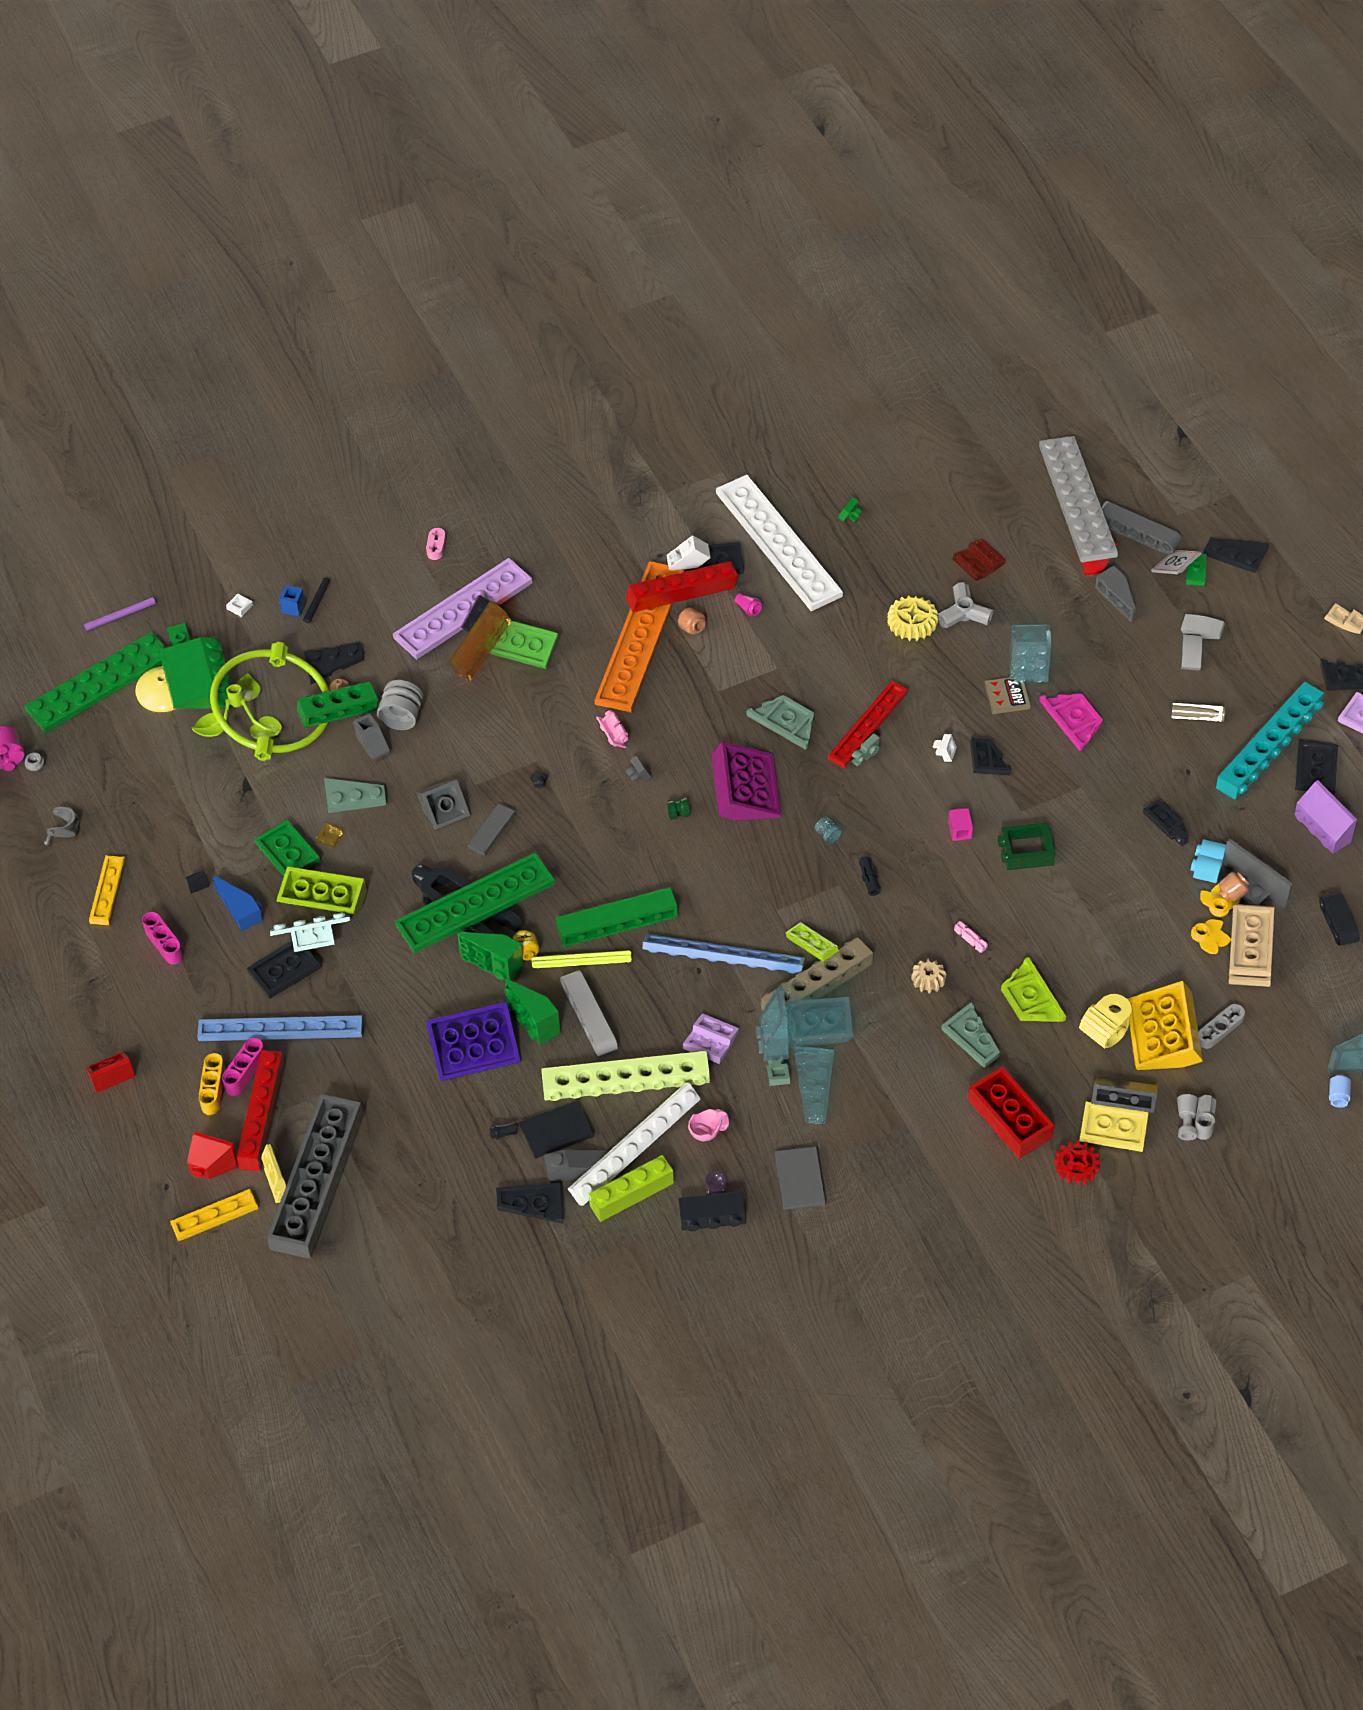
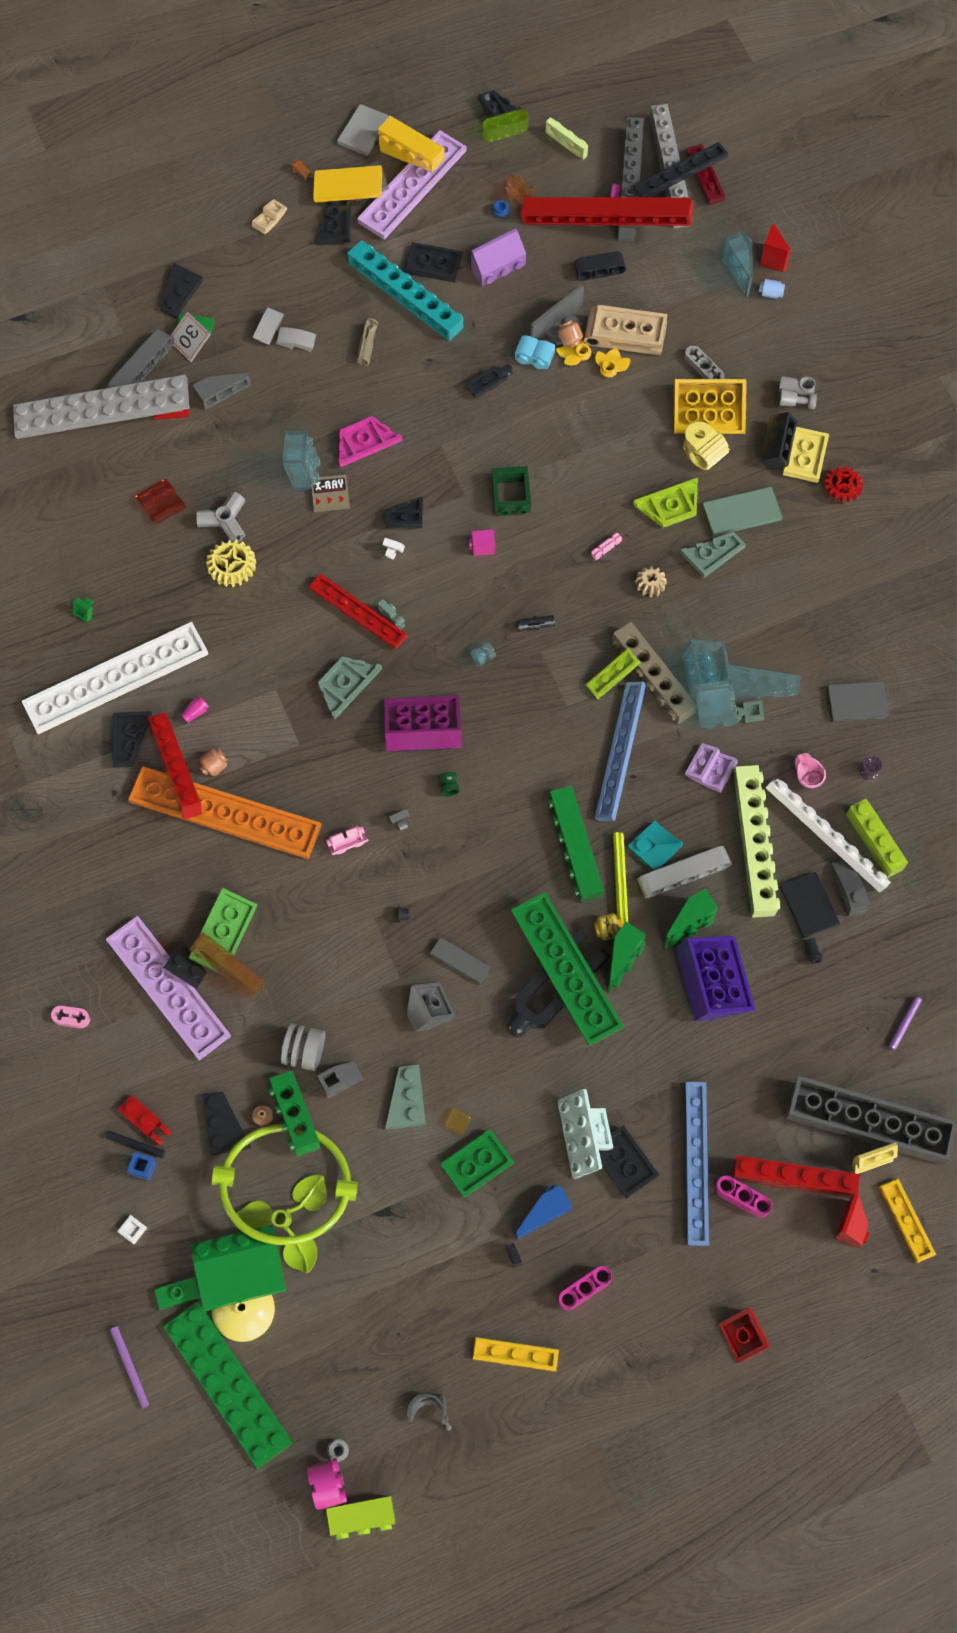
camera: 90 degrees left, 15 degrees up
(211, 1092) = (773, 1227): yellow beam -> none
(322, 890) = (542, 1123): lime slope -> none
(338, 604) = (143, 1118): none -> red hinge
(424, 1217) = (904, 1023): none -> medium lavender bar
(533, 1201) = (888, 924): black wing -> none
(617, 988) = (655, 846): none -> teal plate
(689, 554) = (132, 758): white slope -> none
(711, 1211) = (897, 772): black brick -> none
(1010, 1112) = (798, 527): red brick -> none
(1031, 1064) = (742, 511): none -> sand green tile

